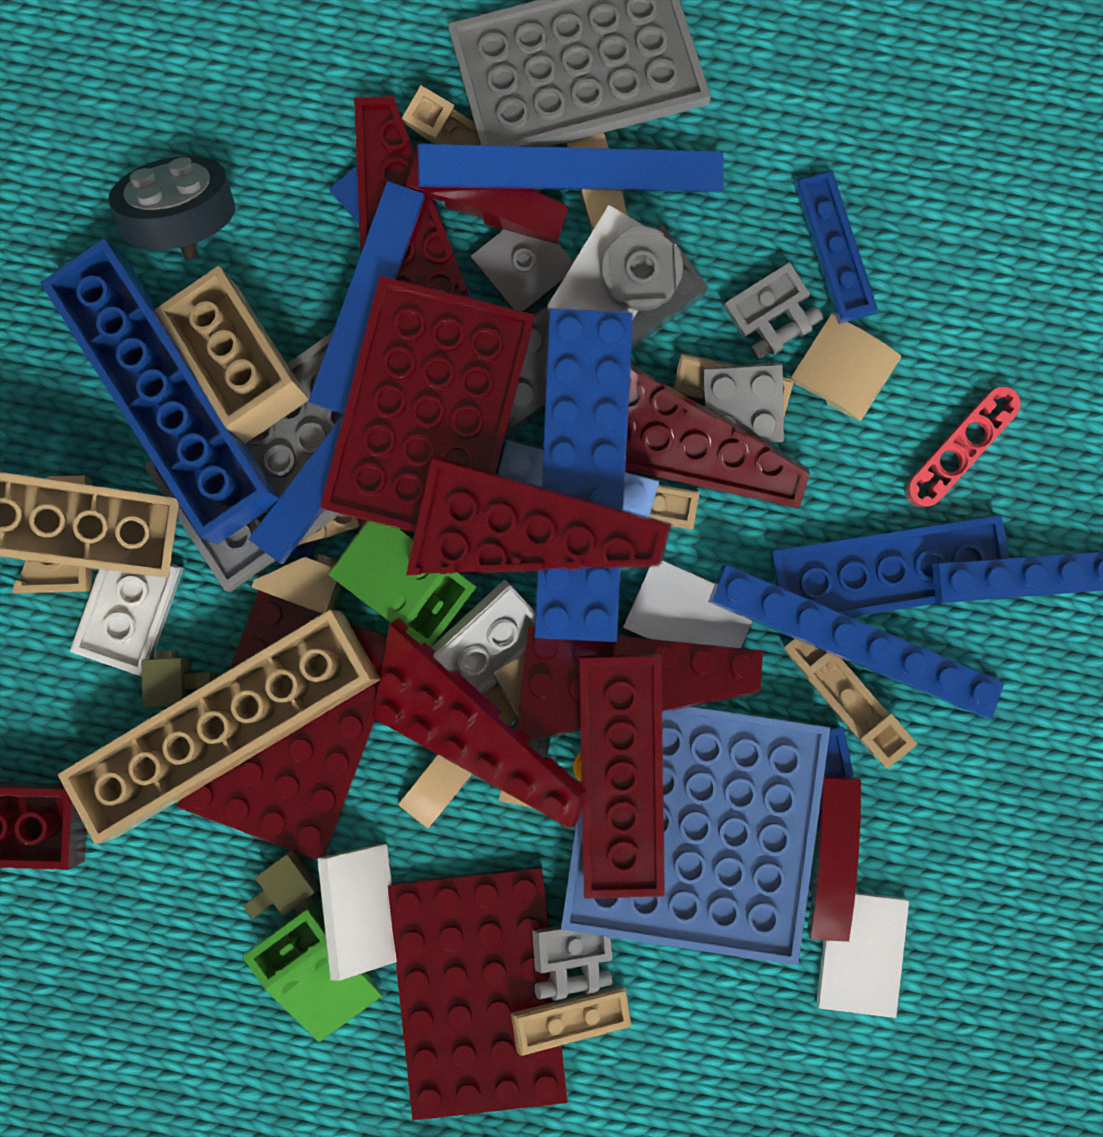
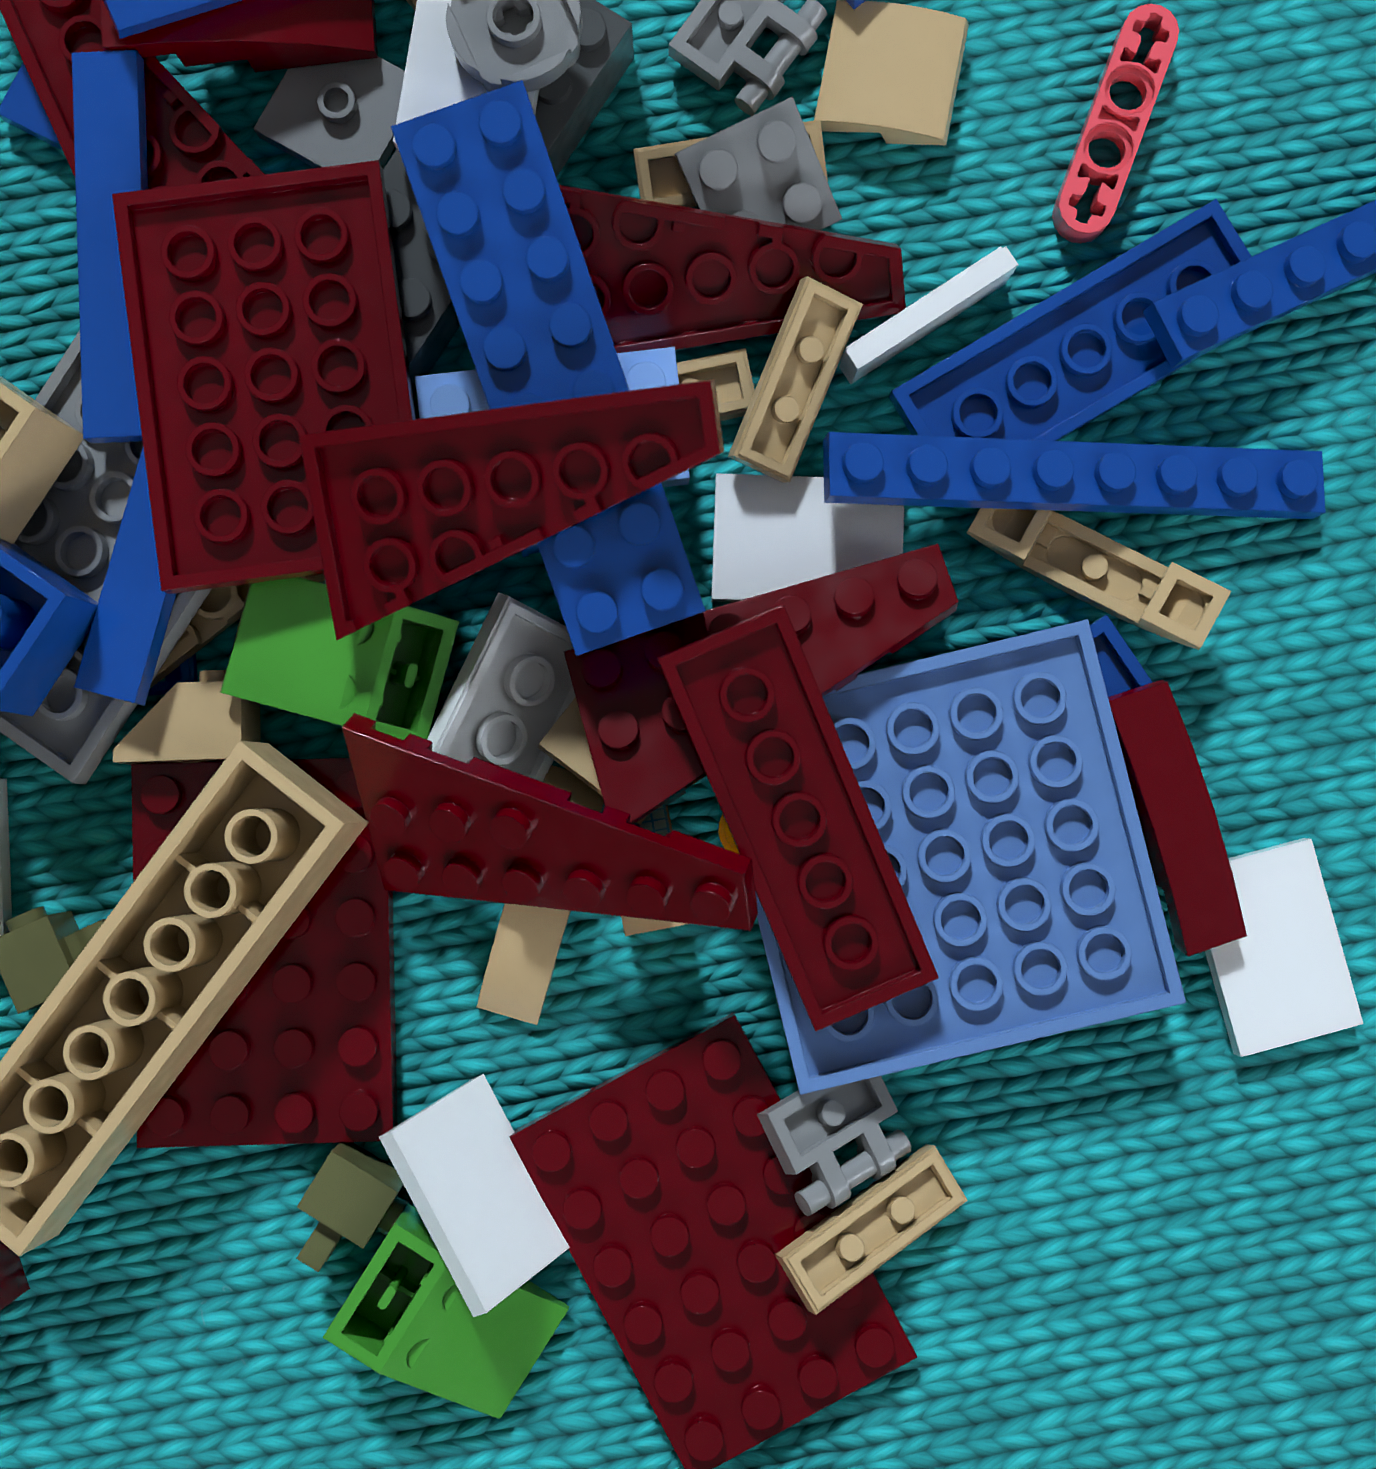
camera: 25 degrees left, 0 degrees up
(720, 524) = (795, 379): none -> tan tile
(810, 514) = (927, 314): none -> white tile

